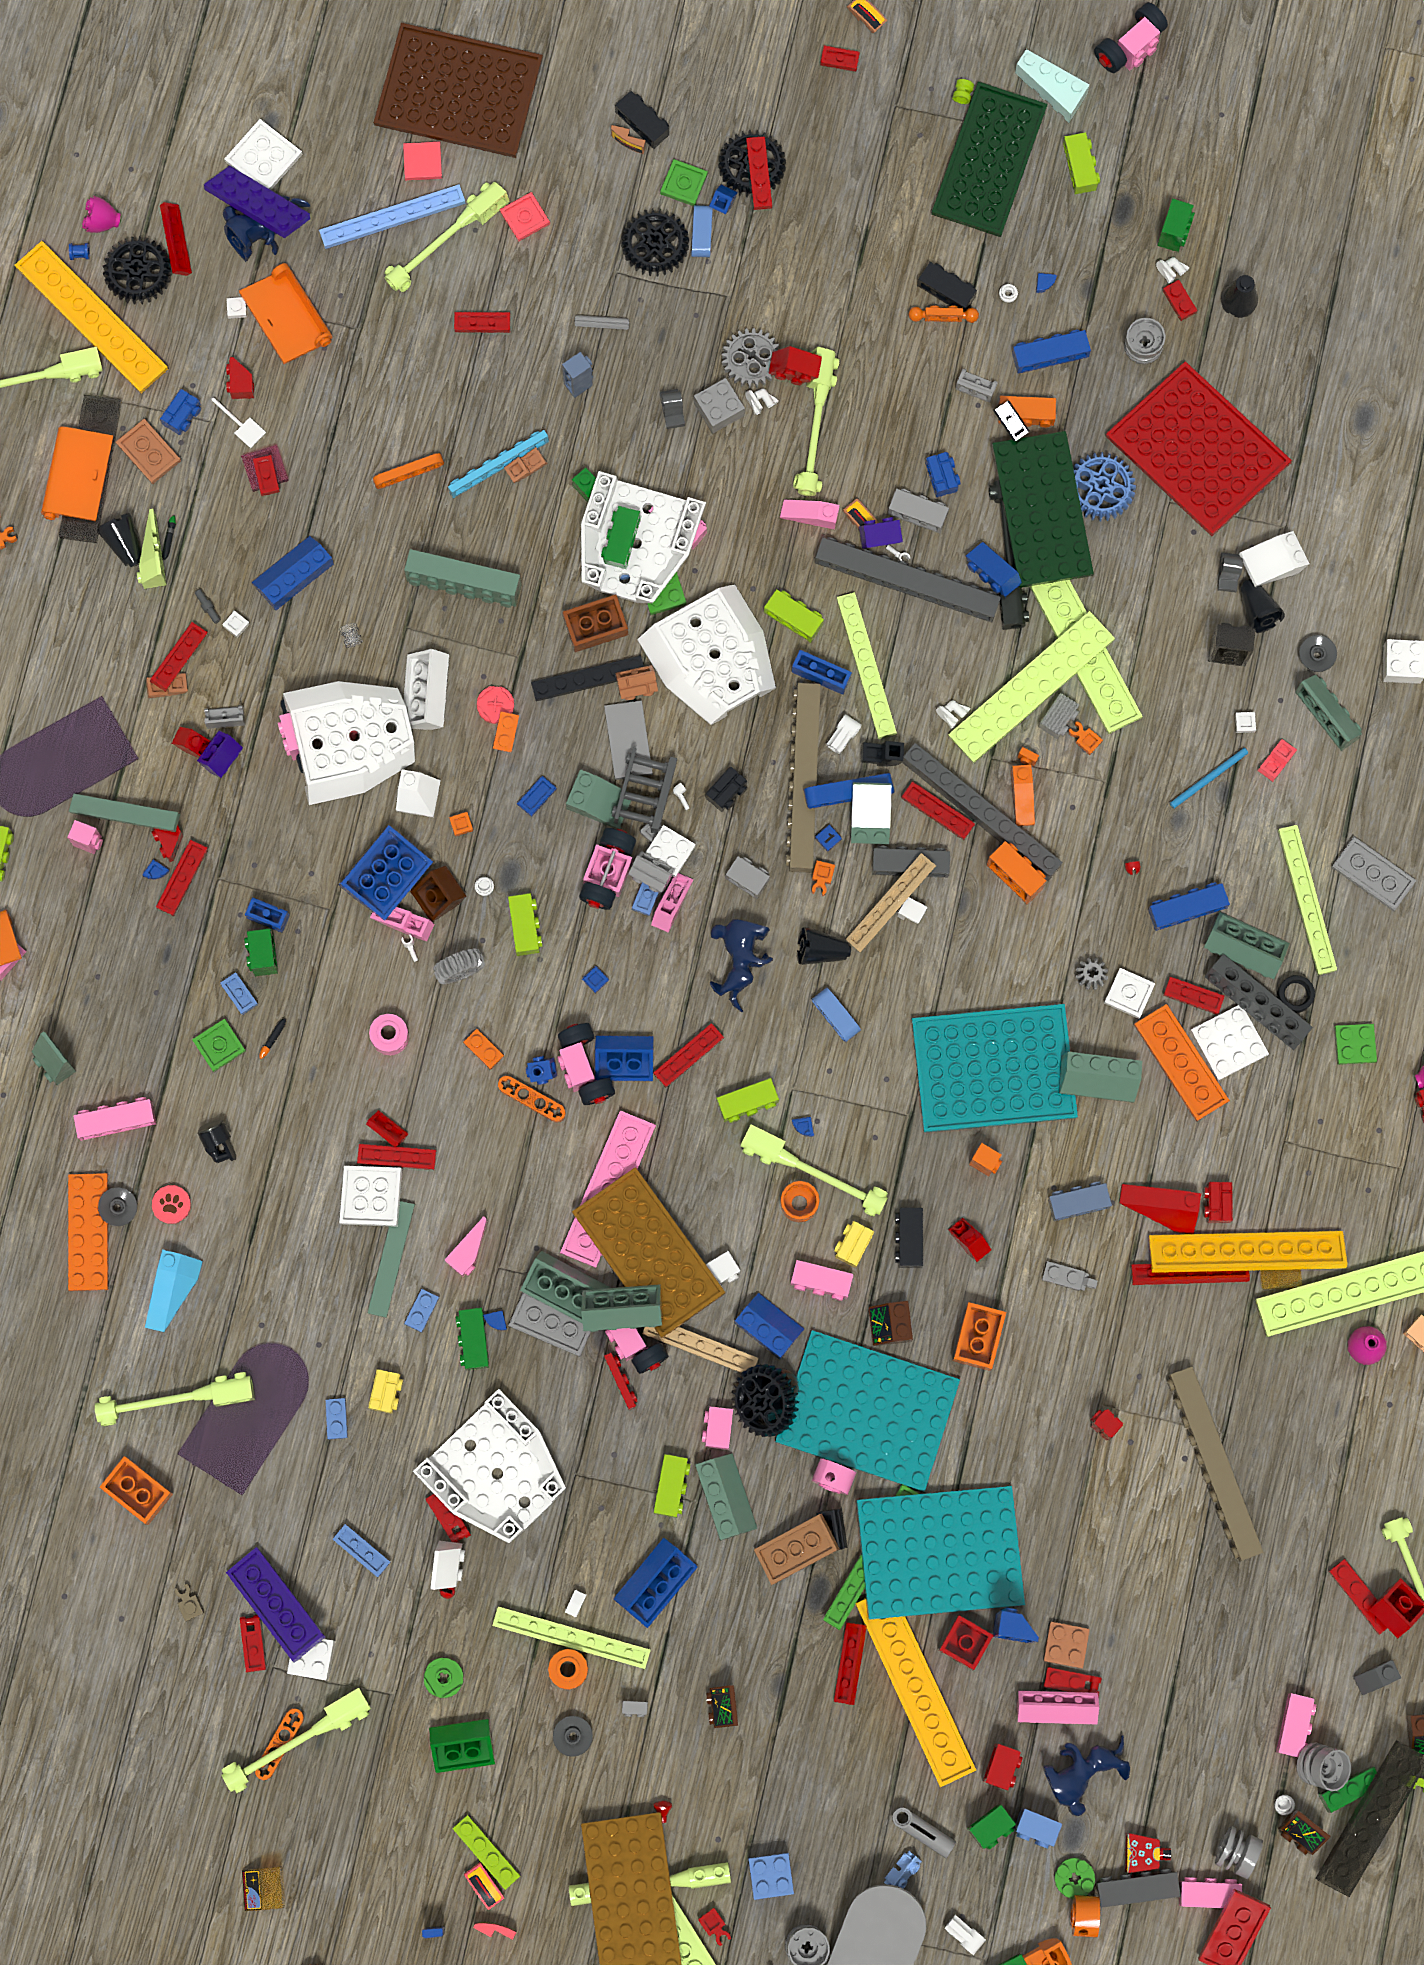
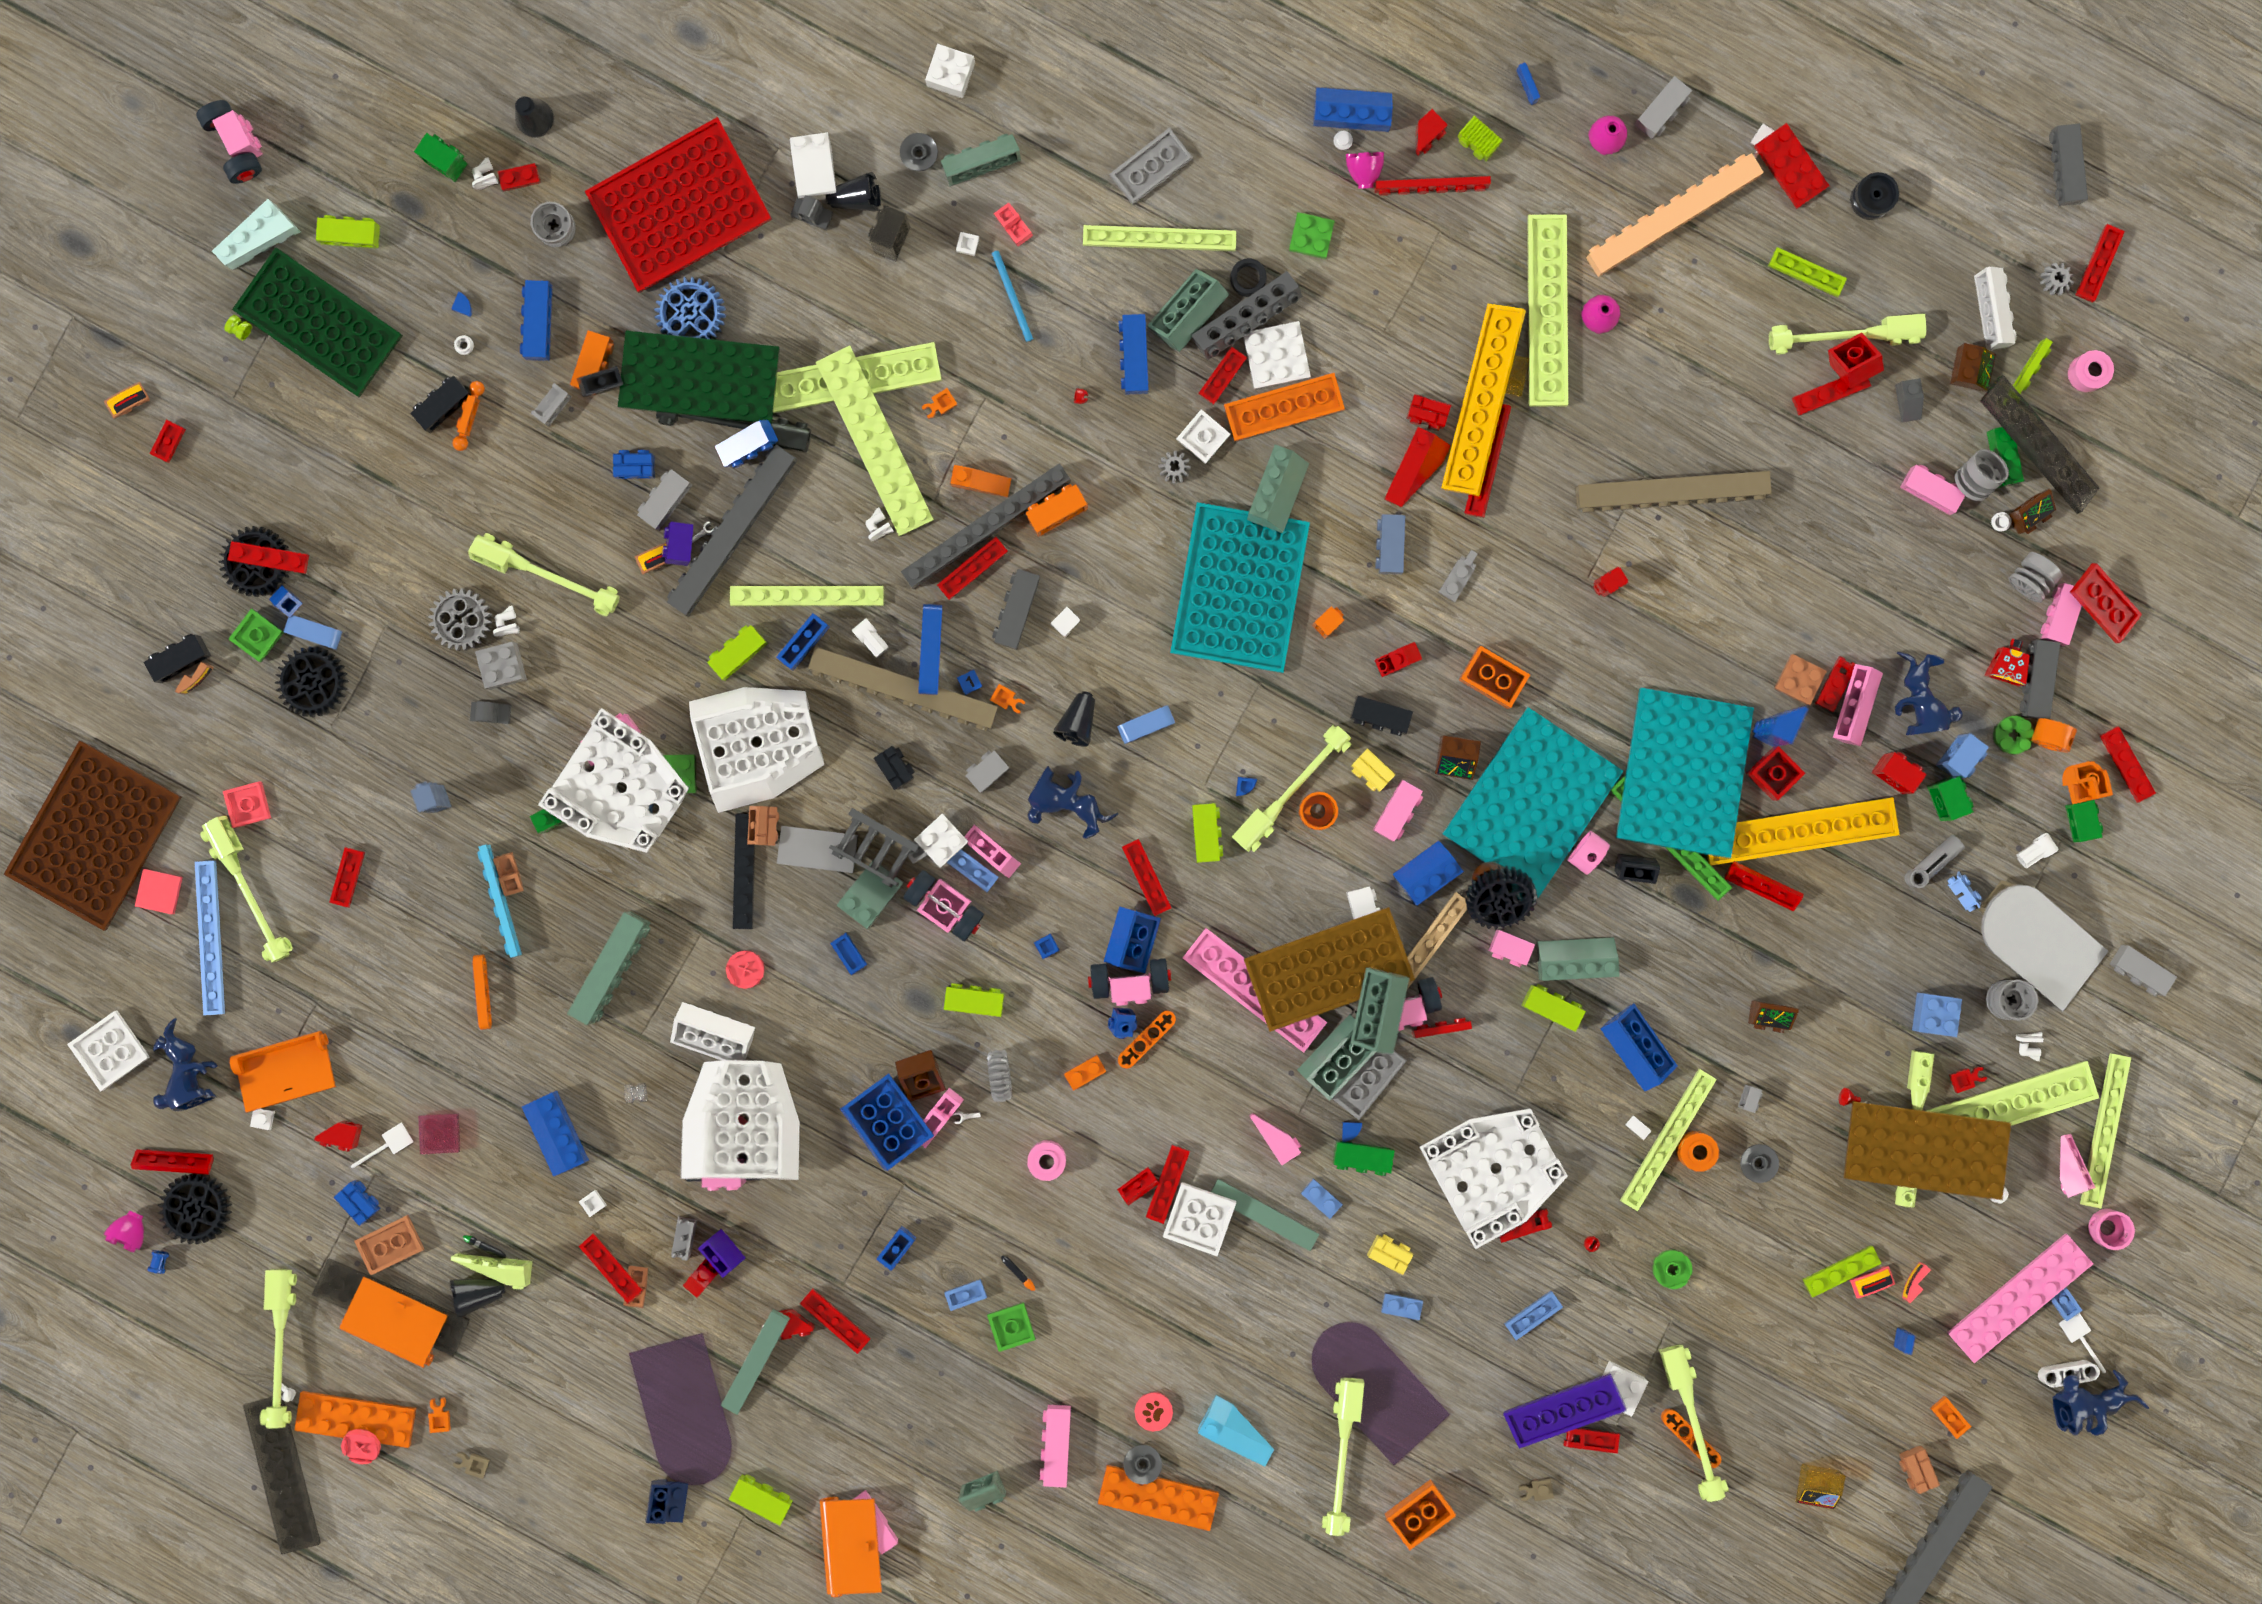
camera: 75 degrees left, 10 degrees up
(85, 837) = (769, 1406): bright pink brick -> none
(91, 316) = (231, 1267): yellow plate -> none
(155, 871) = (820, 1344): blue tile -> none
(207, 606) = (566, 1226): dark grey bar -> none
(213, 1135) = (1099, 1354): black piece -> none
(257, 201) = (156, 1071): dark purple plate -> none
(262, 952) = (932, 1263): green brick -> none
(266, 475) = (448, 1135): red plate -> none
(417, 793) = (814, 1069): white slope -> none
(447, 1565) = (1571, 1239): white slope -> none
(461, 824) = (856, 1035): orange plate -> none
(461, 1746) = (1739, 1269): green slope -> none
(484, 886) = (924, 1029): white plate -> none
(505, 732) = (776, 967): orange plate -> none
(595, 623) = (691, 849): dark orange brick -> none
(601, 322) = (380, 758): light grey axle -> none
(621, 537) = (612, 801): green brick -> none
(651, 872) = (959, 864): light grey brick -> none
(678, 791) = (882, 814): white hand -> none
(795, 365) = (482, 579): red brick -> none
(796, 1549) = (1647, 907): medium nougat plate -> none
(811, 512) = (636, 606): bright pink slope -> none
(871, 813) = (960, 634): slope -> none
(884, 754) = (901, 605): black brick -> none
(890, 902) = (1052, 640): tan plate -> none
(1027, 757) = (943, 465): orange plate -> none
(1059, 715) = (911, 423): light grey brick -> none

